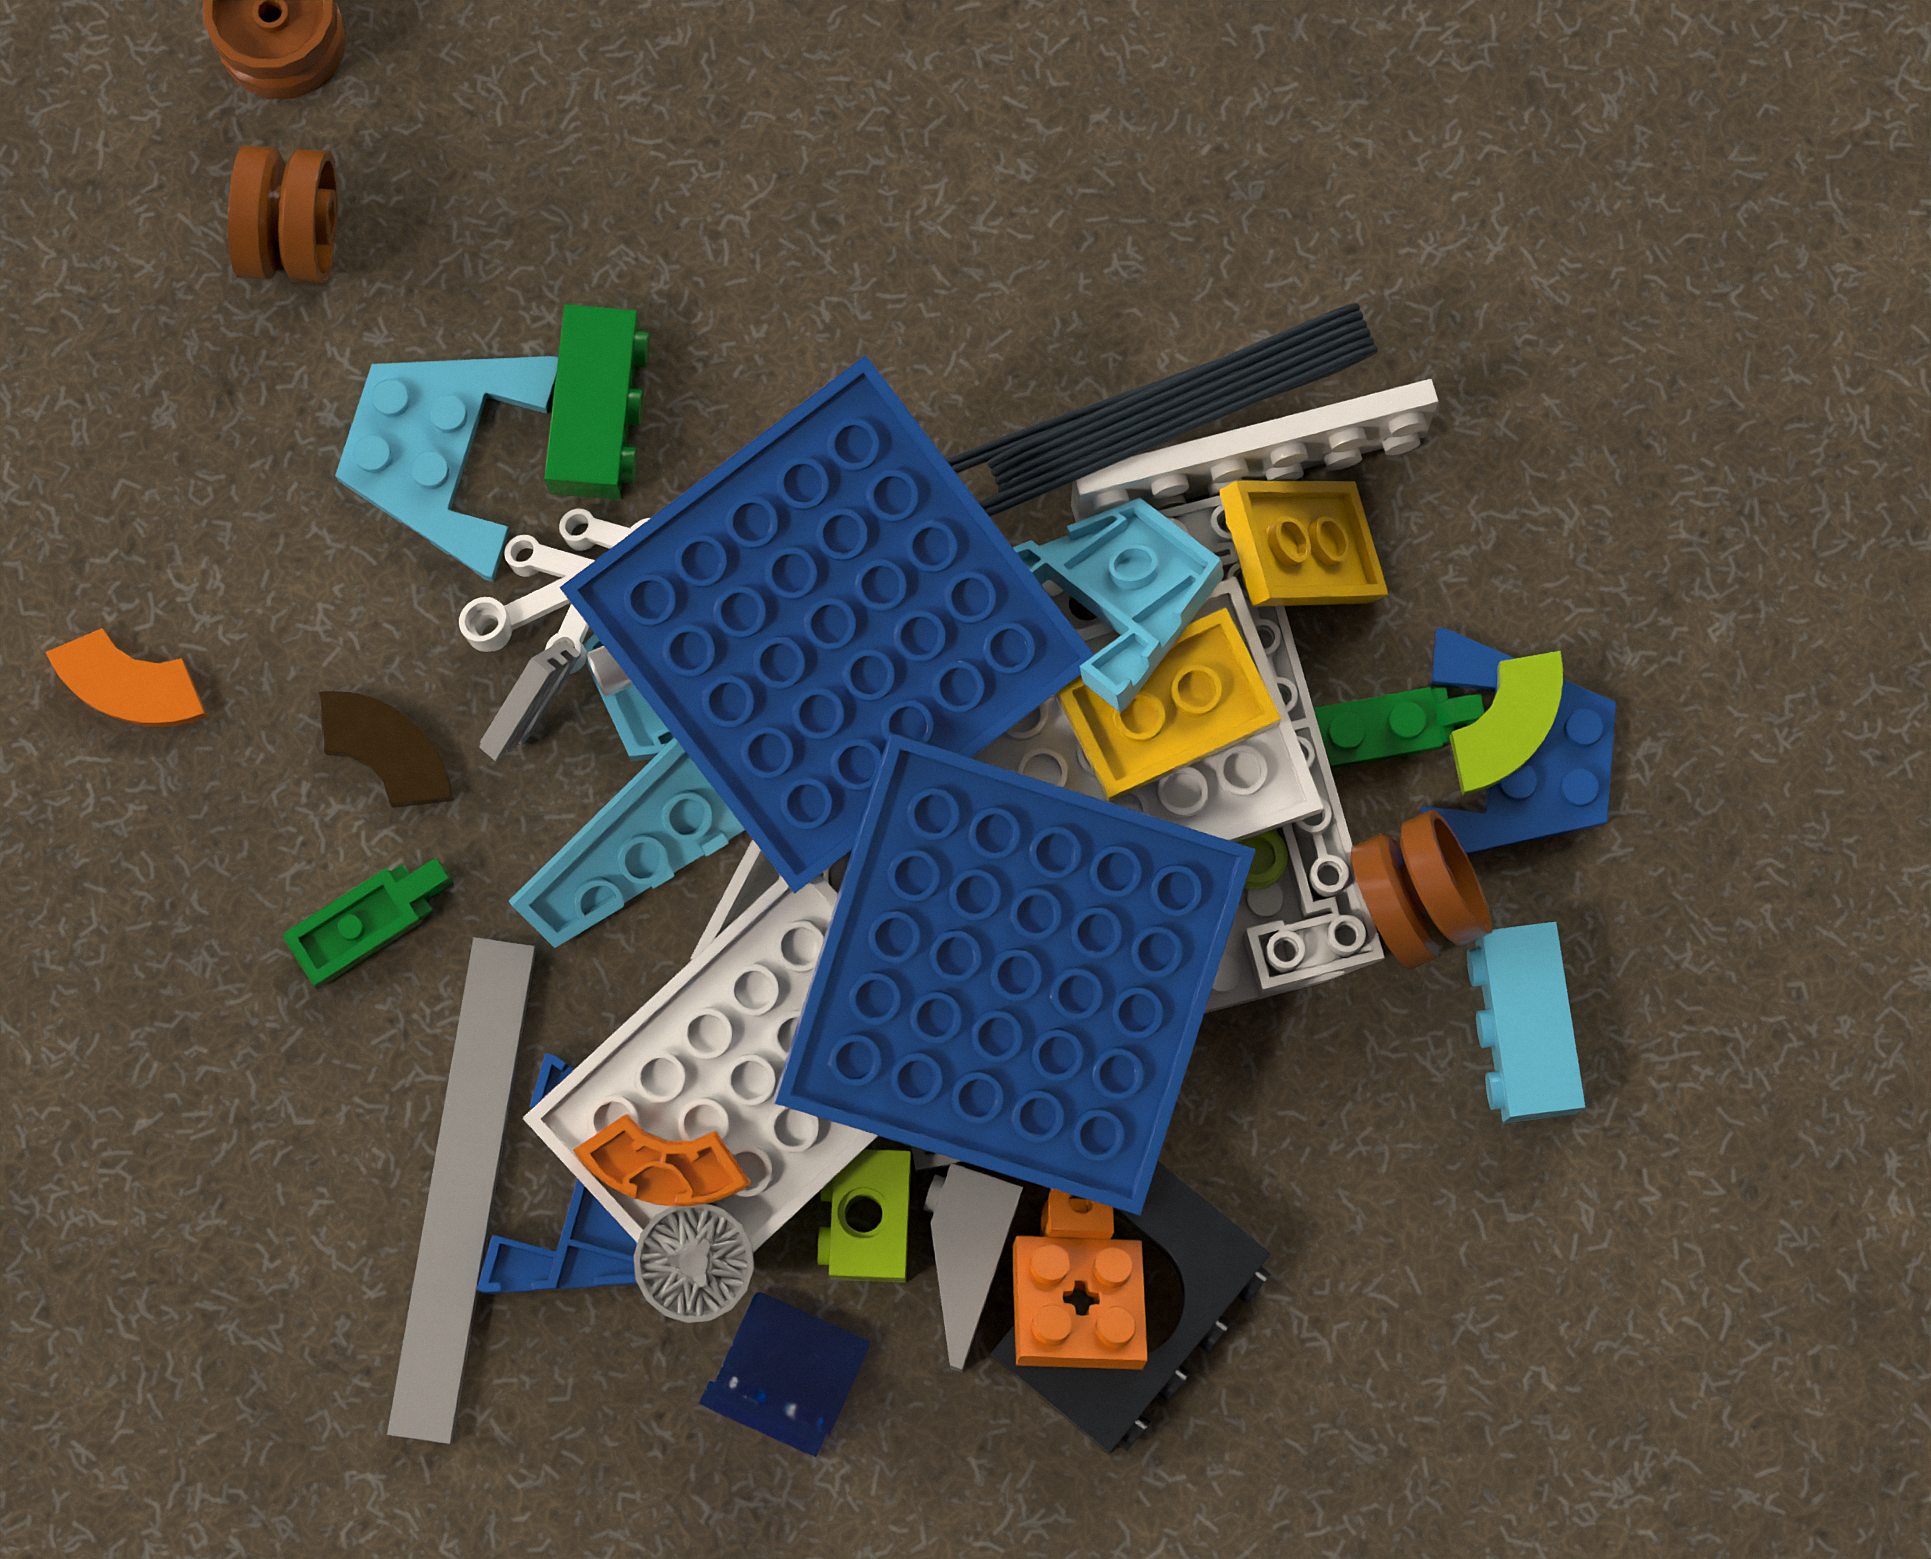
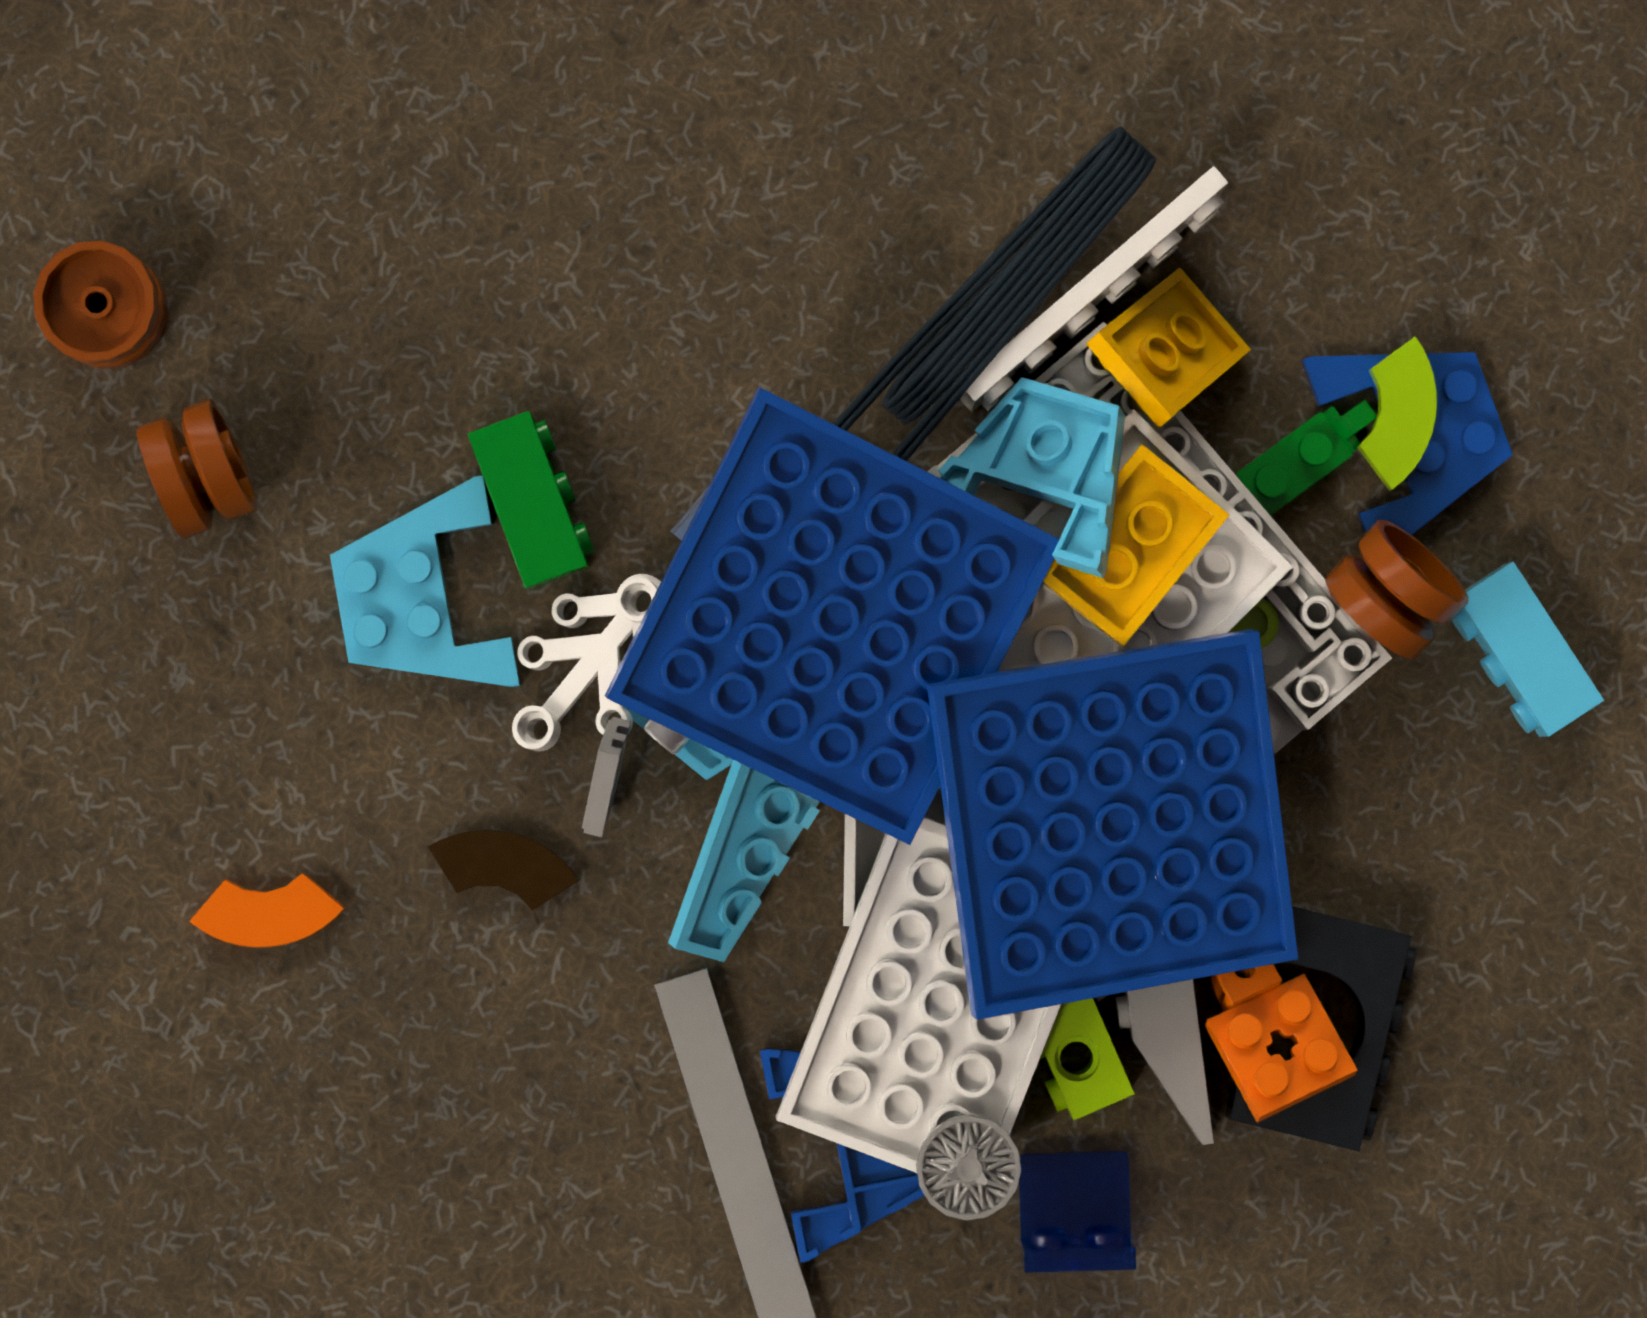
camera: 25 degrees left, 10 degrees up
(365, 920) = (560, 1014): green hinge -> none
(662, 1169) = (907, 1107): orange tile -> none

